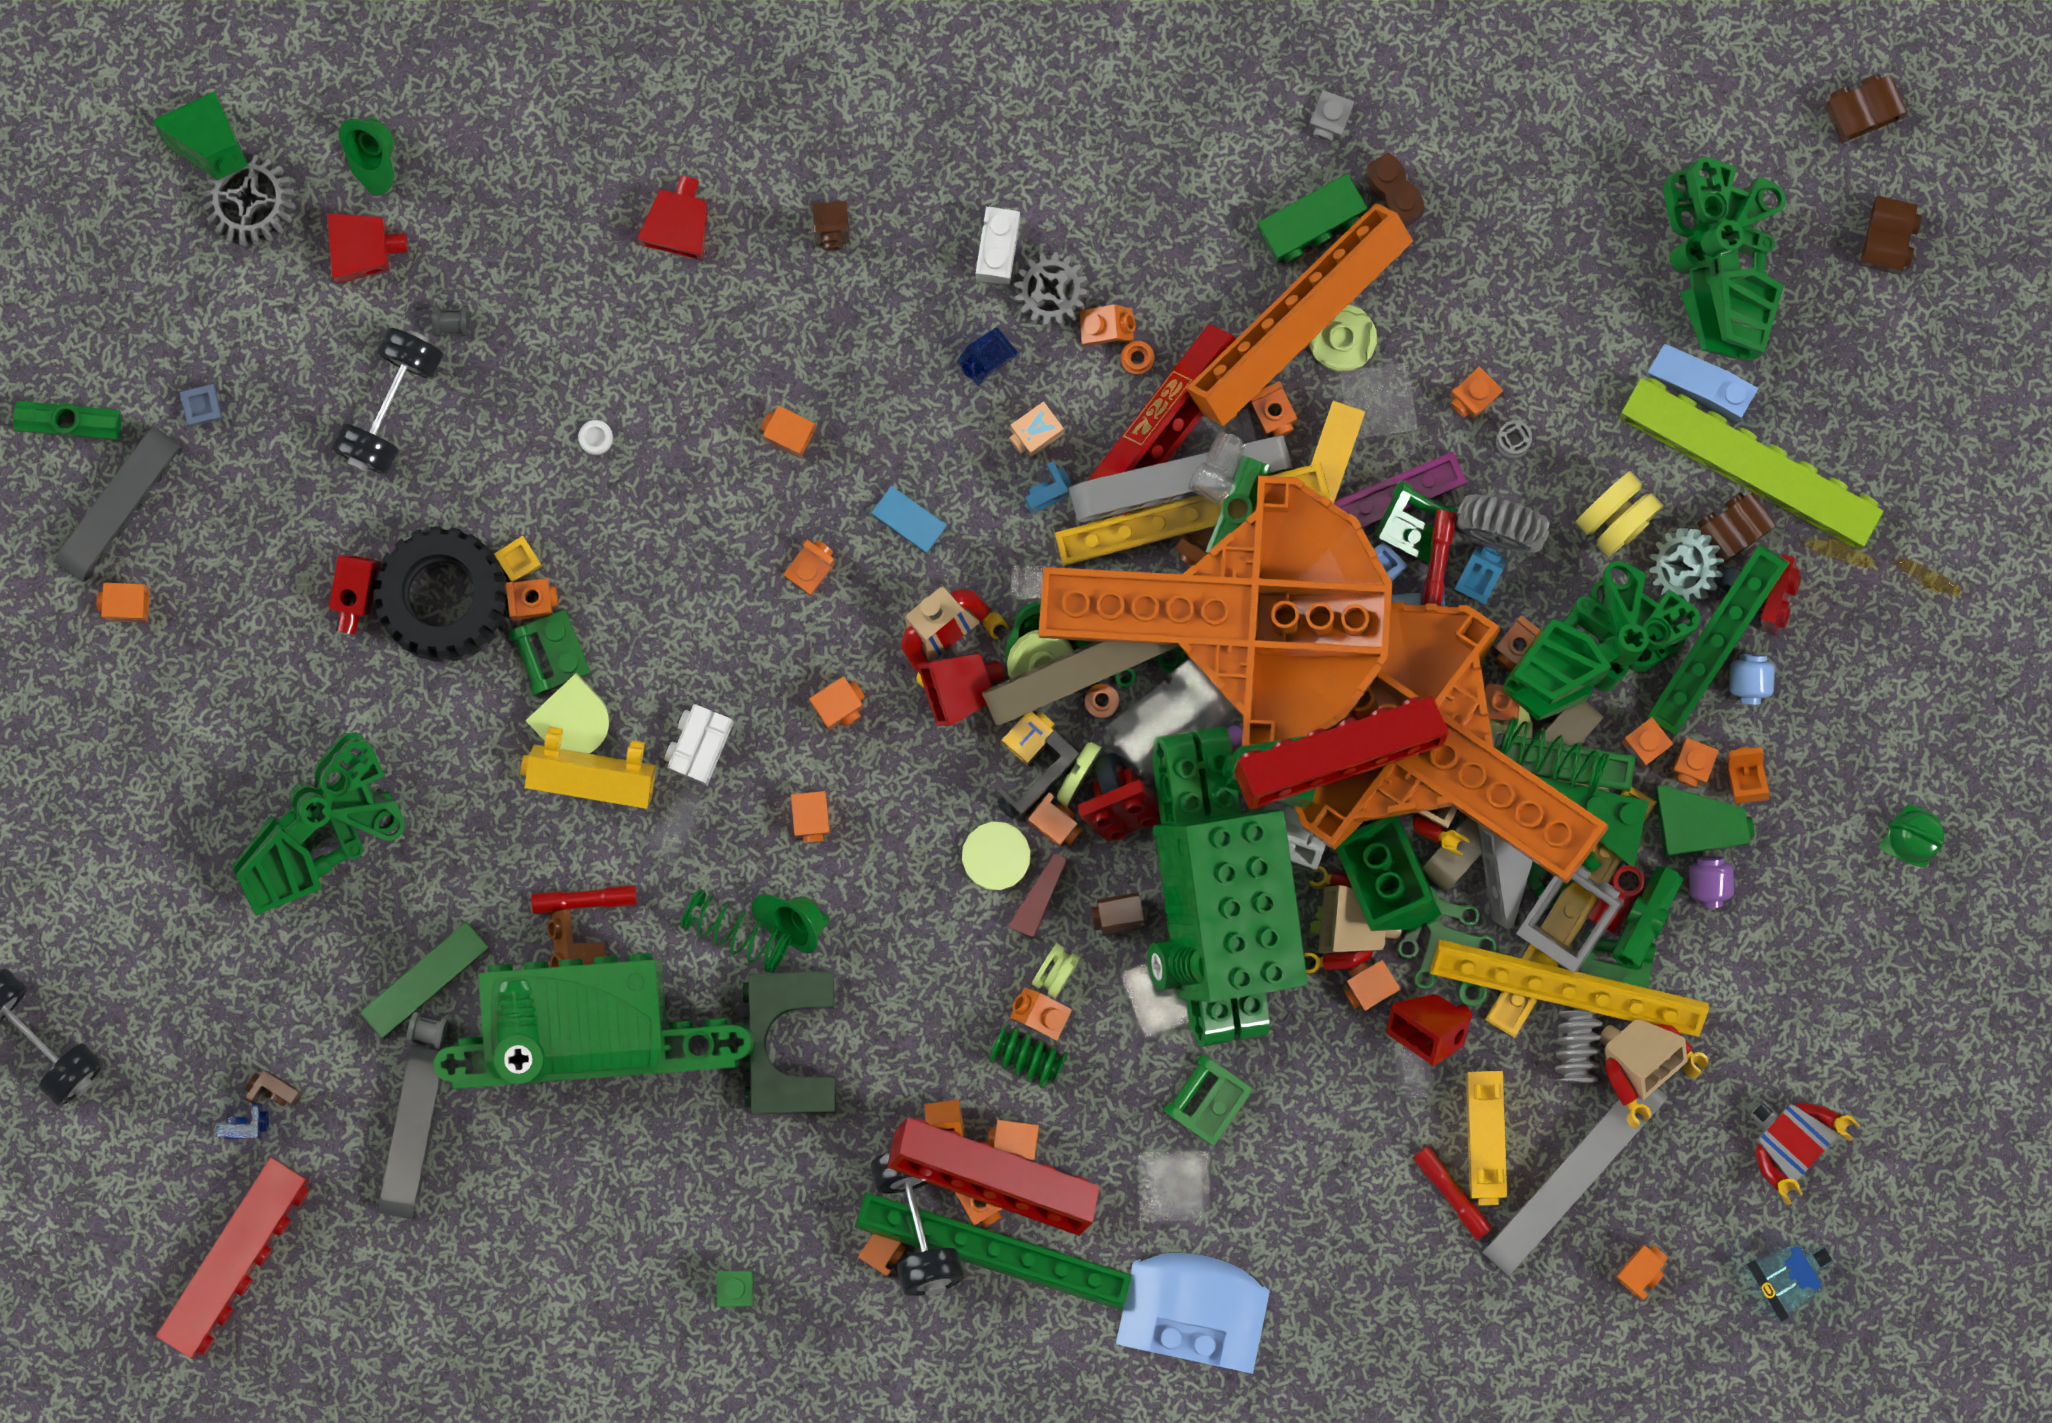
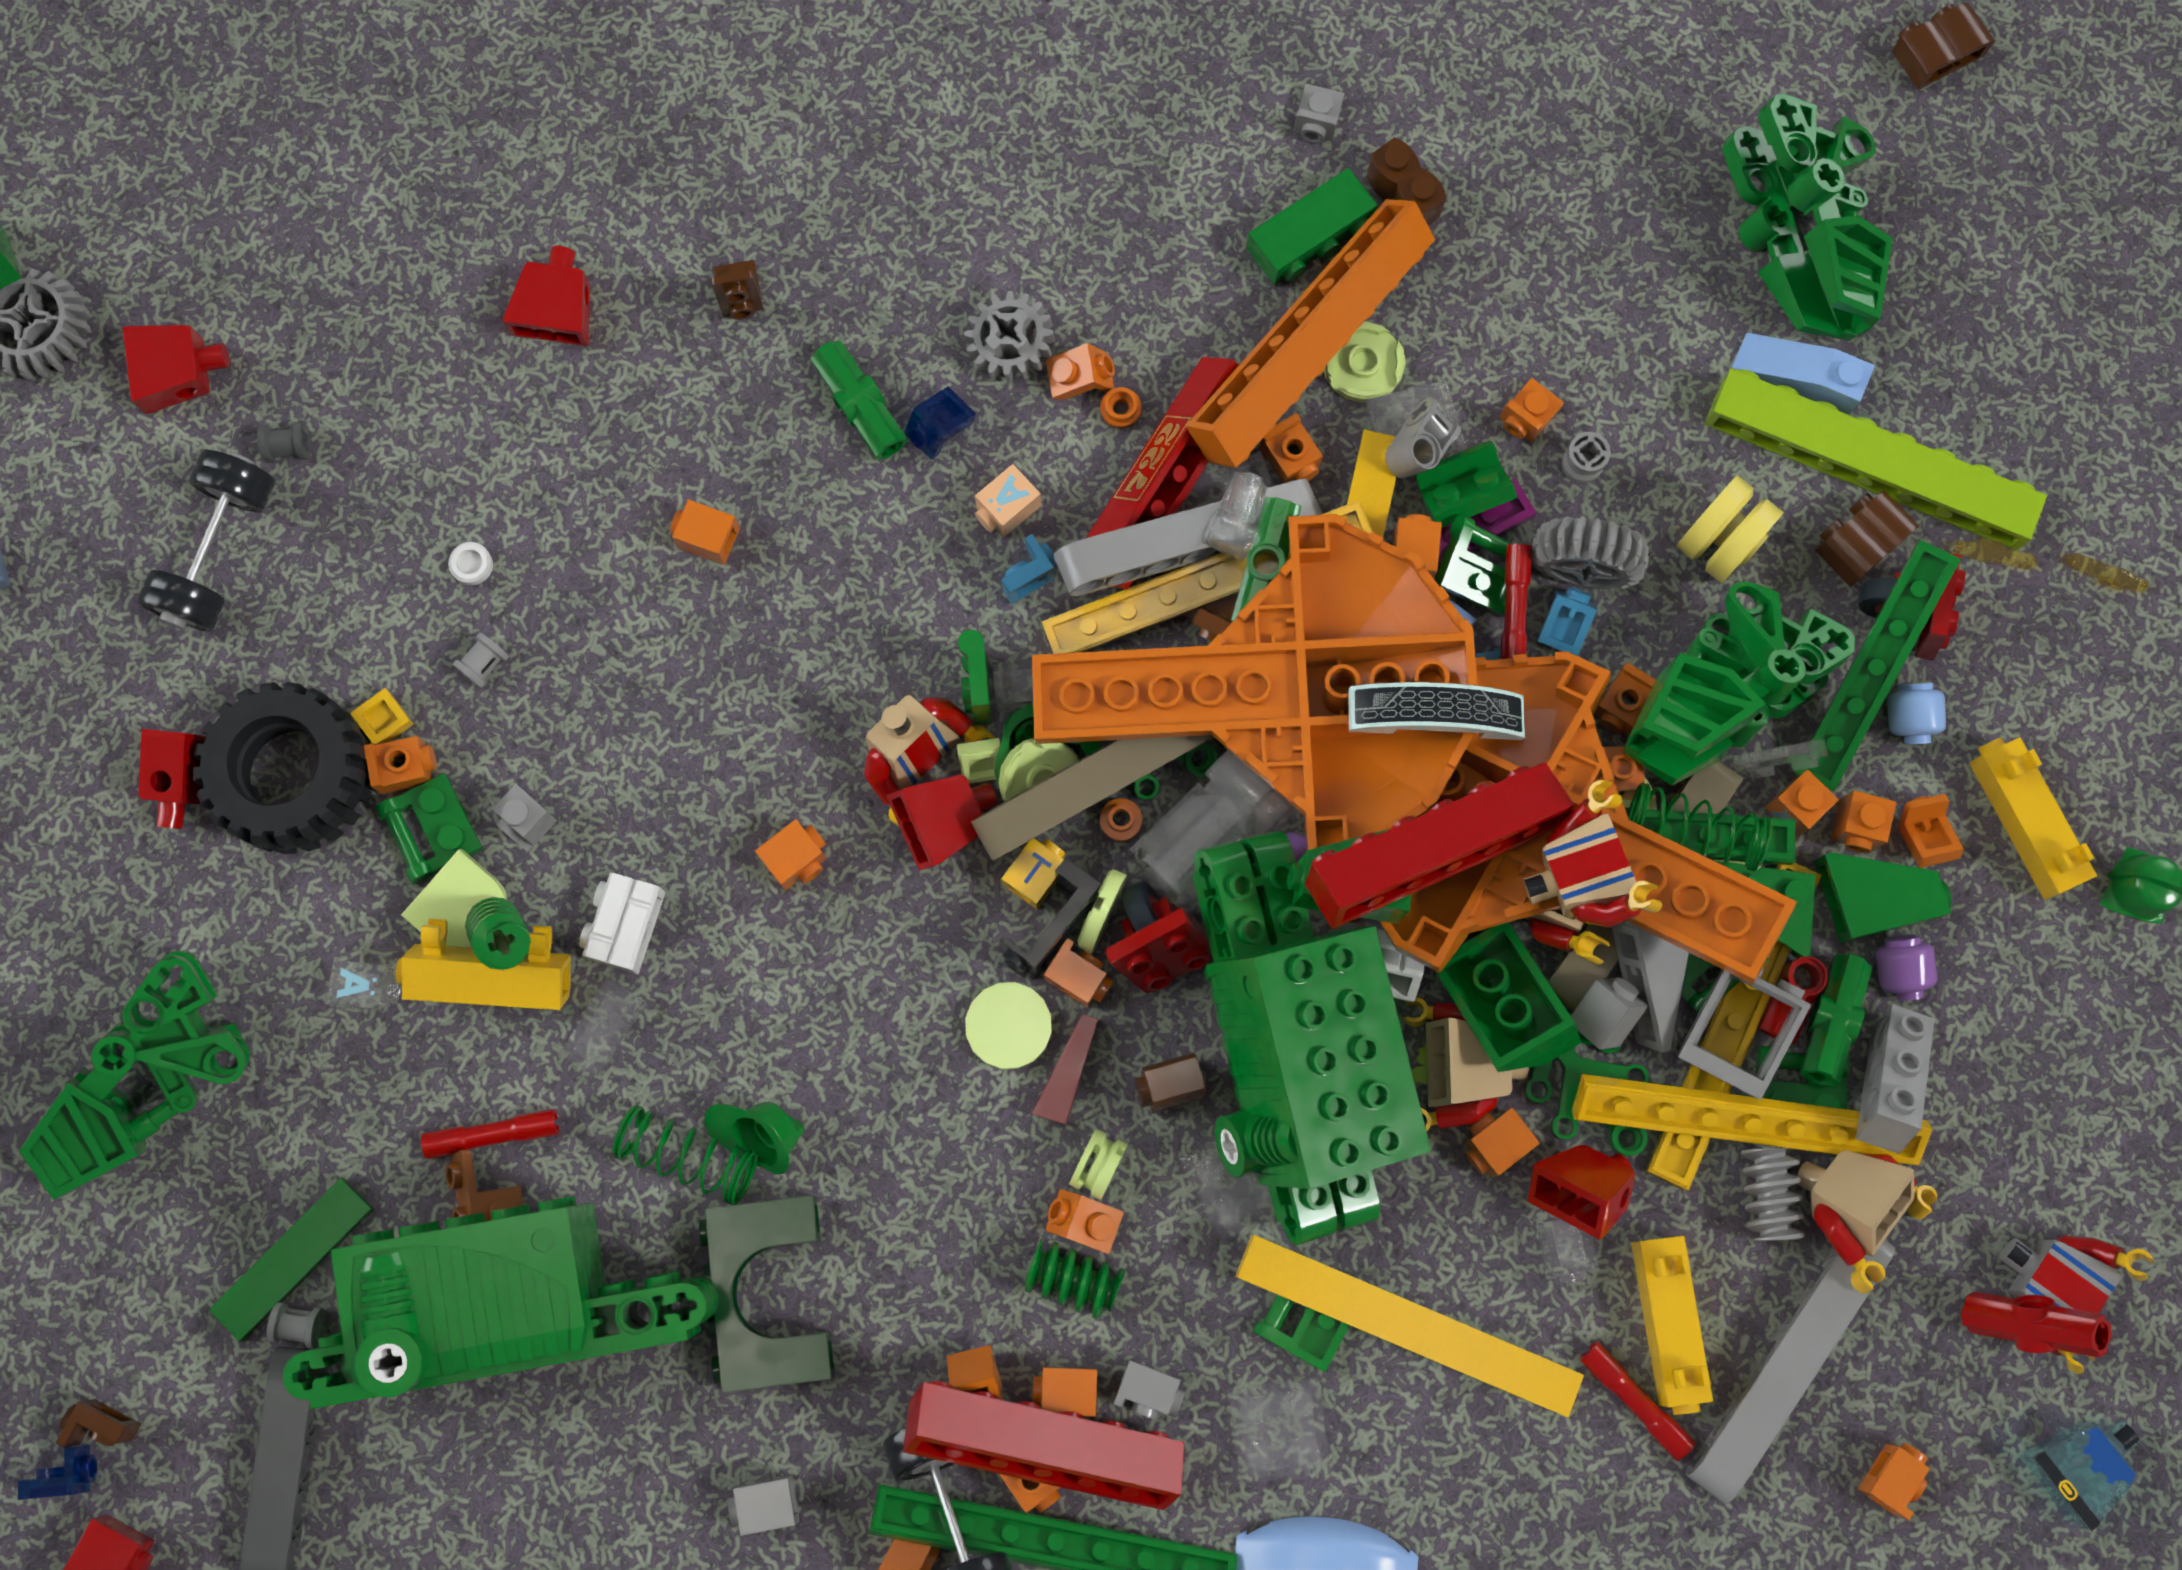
camera: 10 degrees left, 5 degrees down
(368, 152) = (165, 245): green piece -> none
(493, 774) = (363, 987): none -> clear brick
(600, 519) = (480, 660): none -> light grey bush
(605, 744) = (504, 949): none -> green piece
(626, 652) = (523, 818): none -> light grey brick
(775, 1201) = (764, 1505): none -> light grey brick
(810, 566) = (746, 691): orange bracket -> none
(810, 816) = (769, 999): orange brick -> none
(909, 519) = (862, 624): dark azure tile -> none
(922, 331) = (859, 400): none -> green piece
(992, 641) = (978, 759): none -> yellowish green tile
(997, 584) = (976, 686): none -> green plate
(998, 246) = (940, 291): white brick -> none
(1077, 1146) = (1149, 1391): none -> light grey brick
(1282, 1117) = (1409, 1325): none -> yellow tile
(1355, 645) = (1436, 708): none -> slope
(1363, 502) = (1421, 537): none -> orange brick
(1382, 412) = (1421, 440): none -> light grey piece
(1410, 454) = (1465, 484): none -> green bracket
(1454, 781) = (1590, 867): none -> torso
(1466, 893) = (1608, 1012): none -> light grey brick
(1646, 704) = (1799, 755): none -> clear wing
(1684, 967) = (1895, 1079): none -> light grey brick
(1696, 554) = (1819, 567): light aqua gear -> none
(1760, 1163) = (2037, 1324): none -> red piece
(1830, 771) = (2032, 817): none -> yellow brick
(1889, 235) = (1994, 183): reddish brown brick -> none

